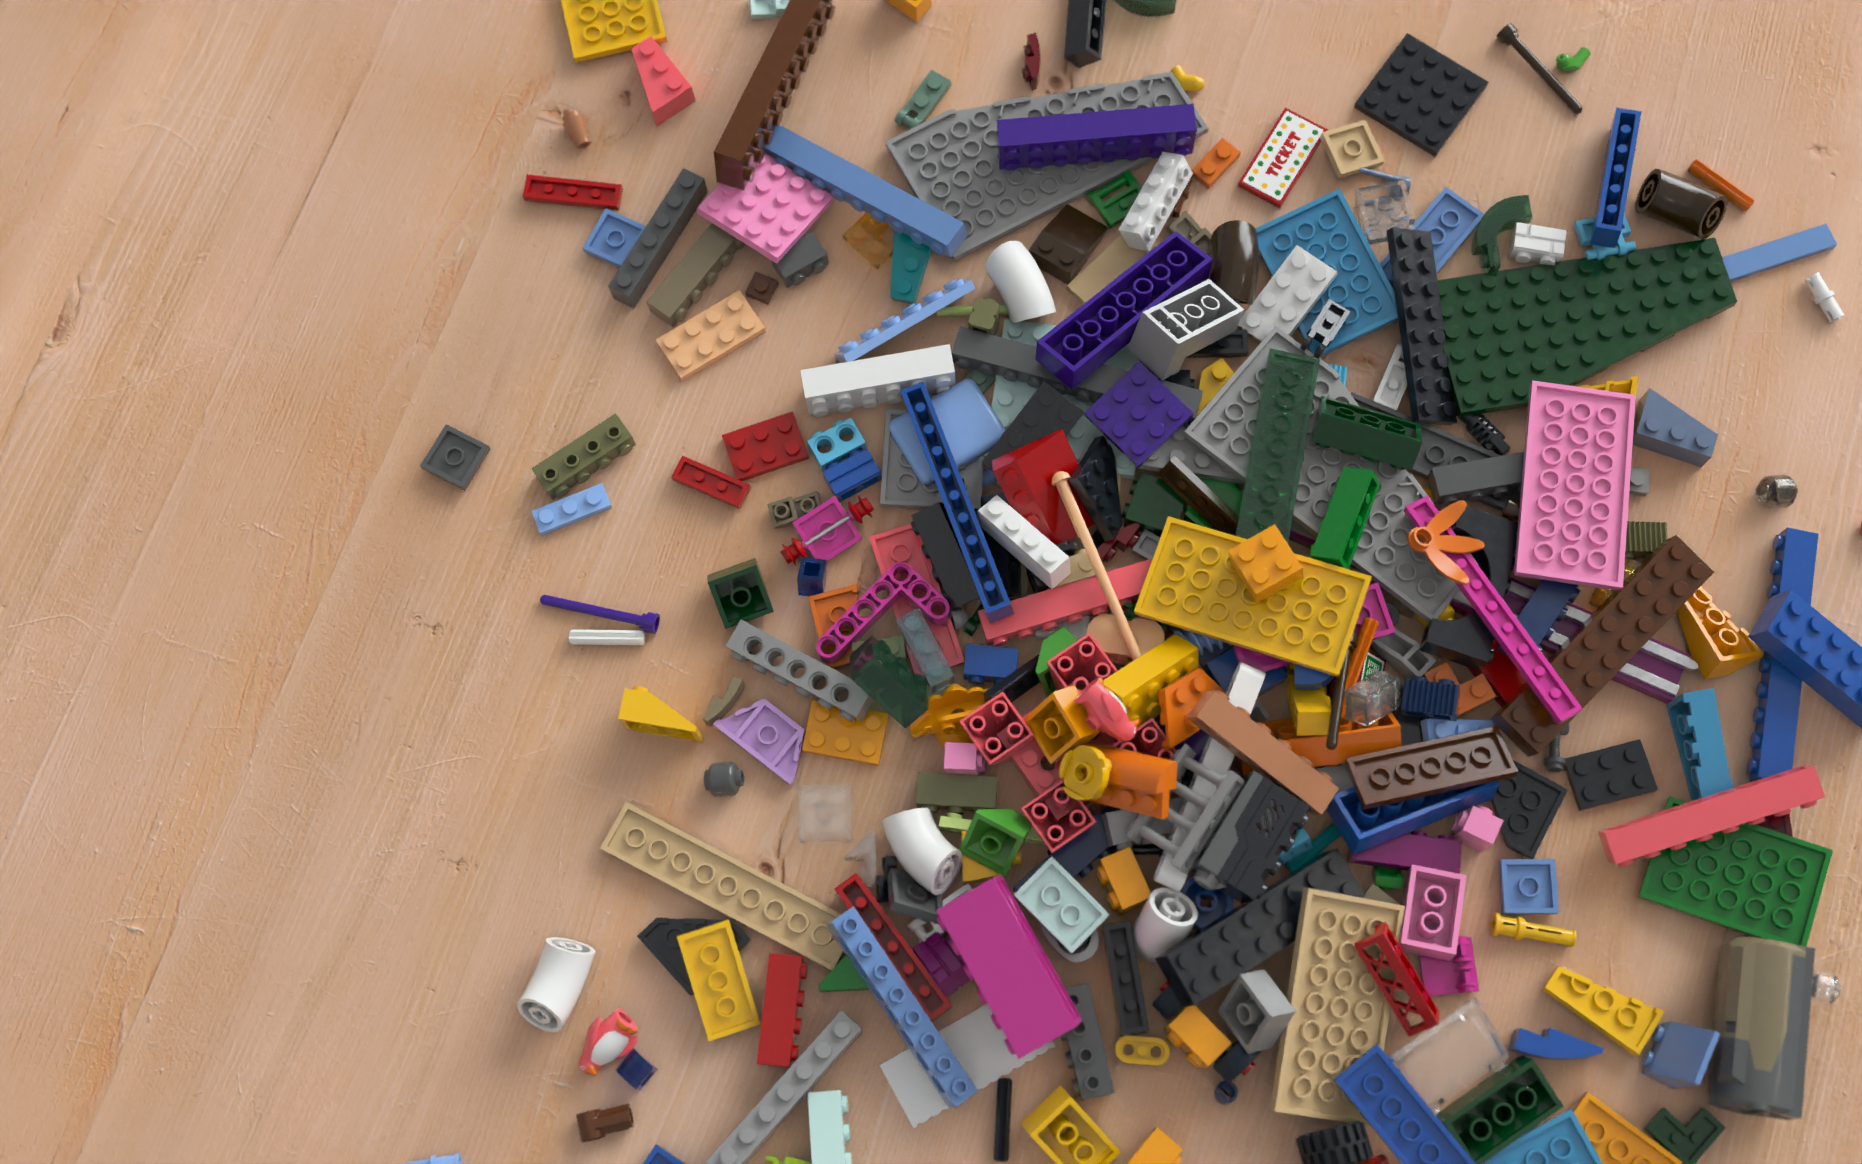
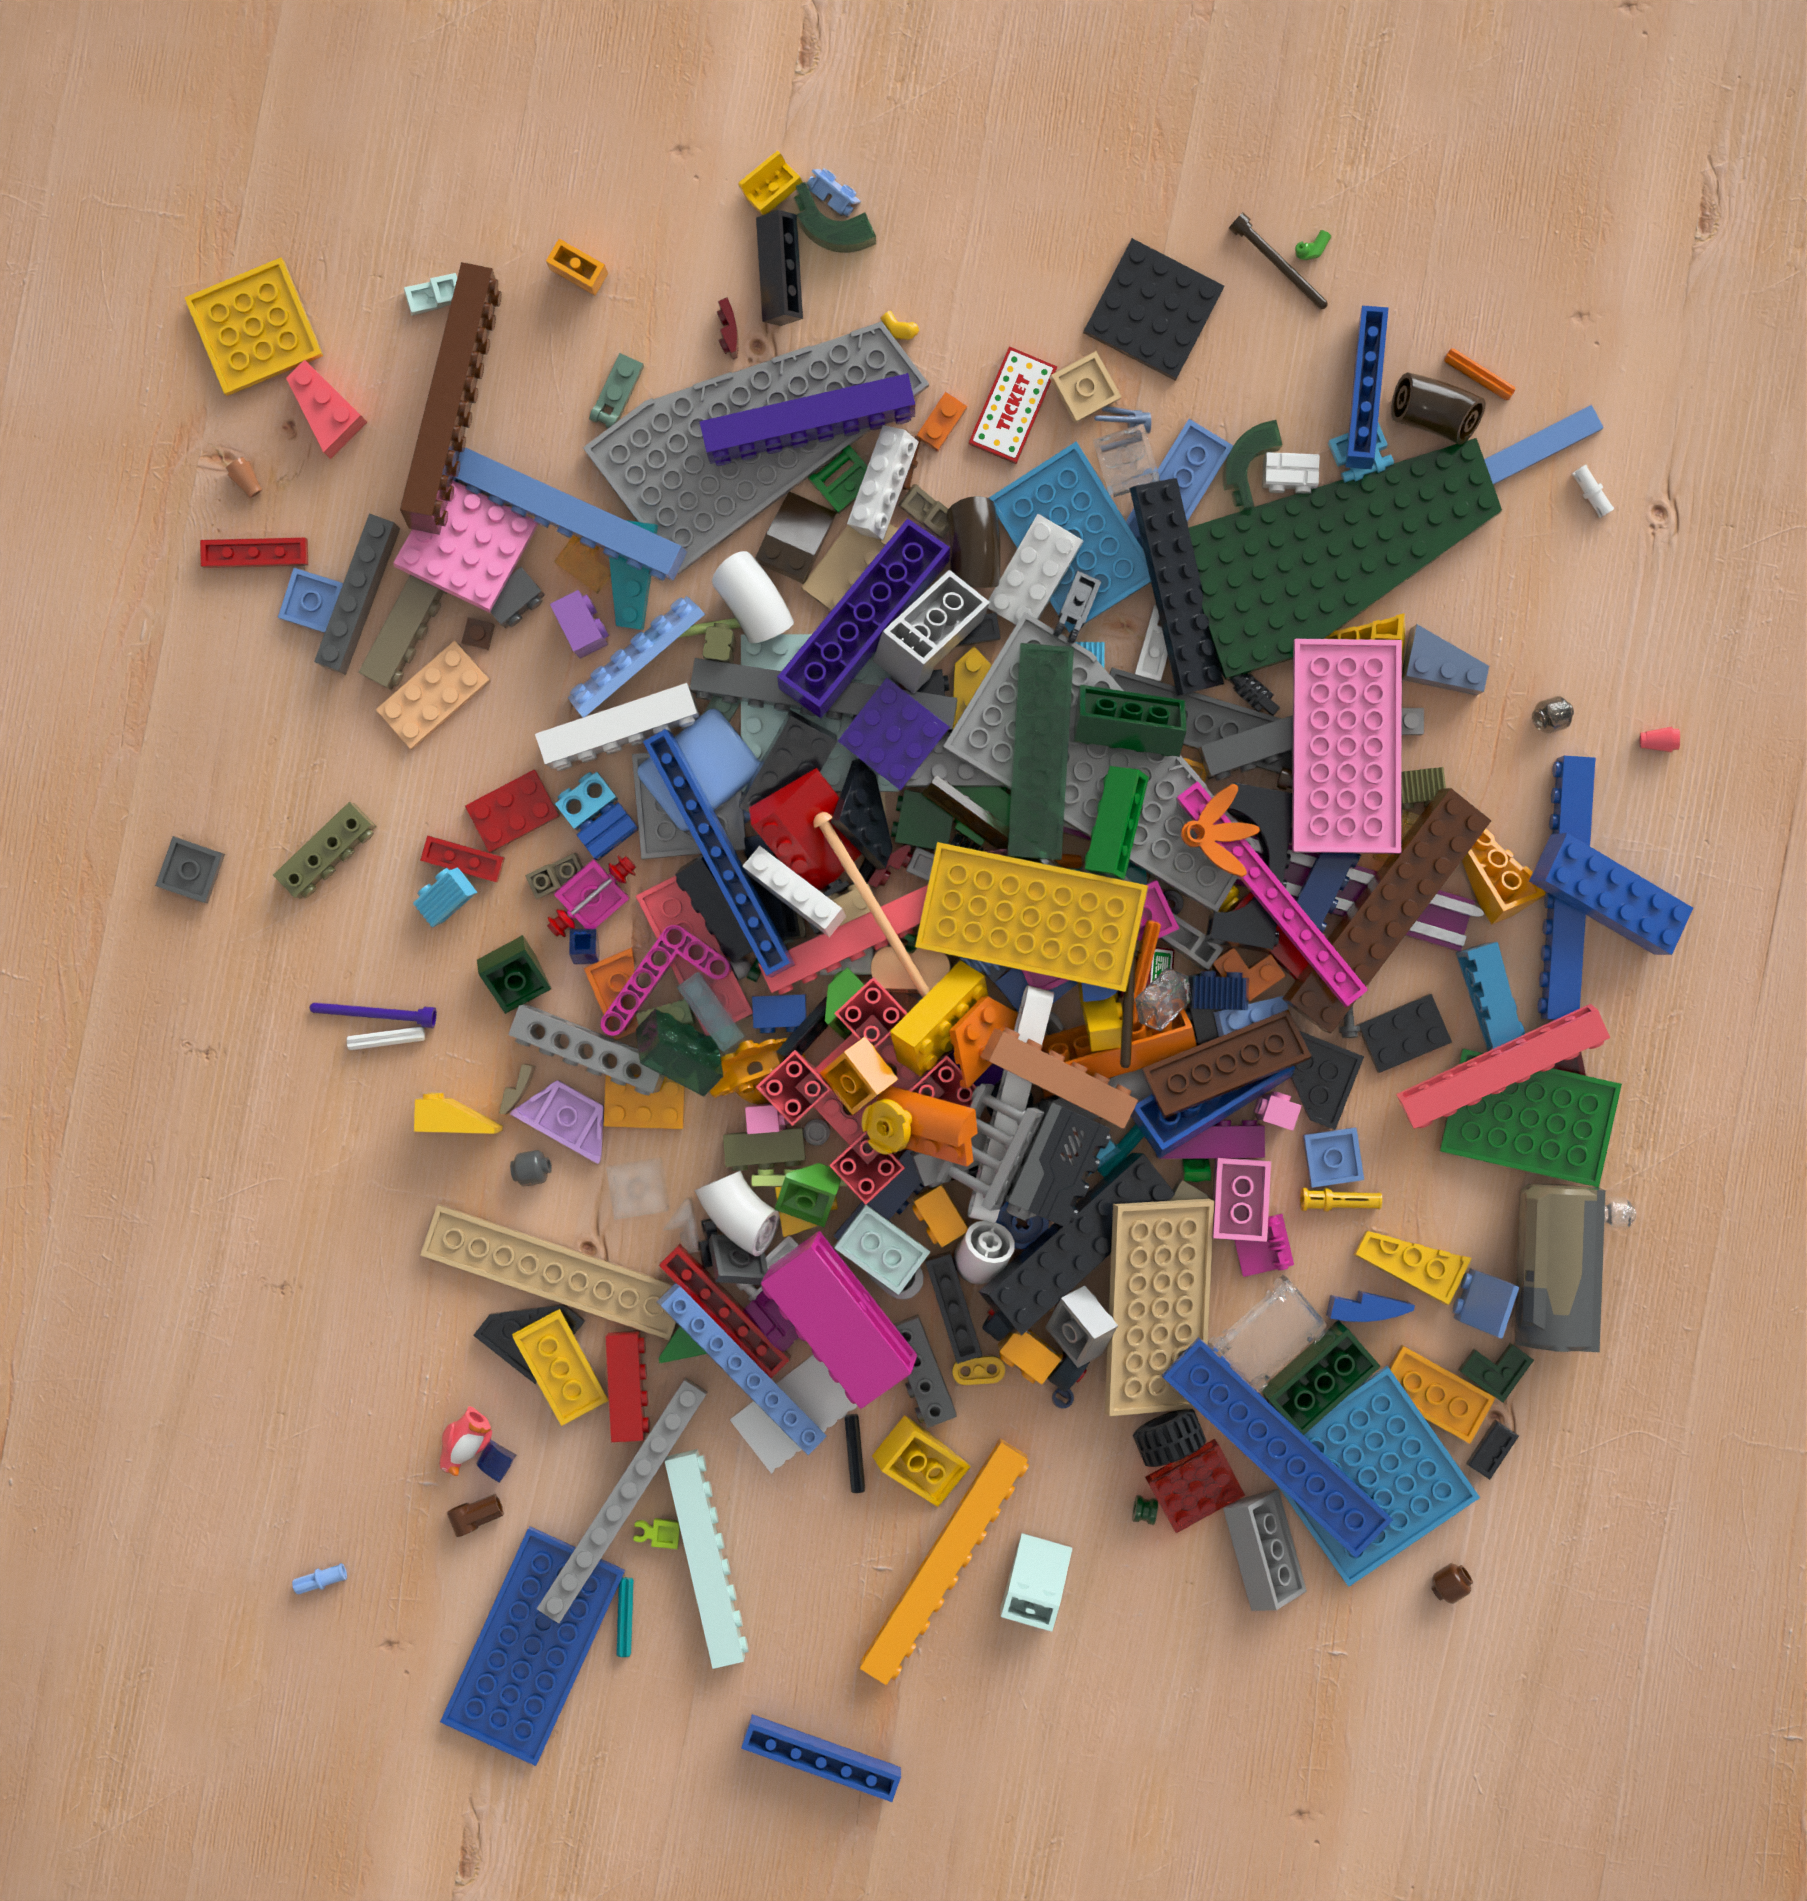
camera: 15 degrees left, 15 degrees up
(556, 983) = (403, 1392): white brick -> none
(571, 509) = (323, 907): light blue plate -> none
(688, 511) = (444, 897): none -> medium azure brick
(858, 286) = (578, 623): none -> medium lavender brick
(1010, 786) = (816, 1132): none -> light grey plate
(1106, 711) = (899, 1061): coral animal -> none
(1266, 563) = (1040, 887): light orange brick -> none
(1407, 976) = (1224, 1271): red fence -> none

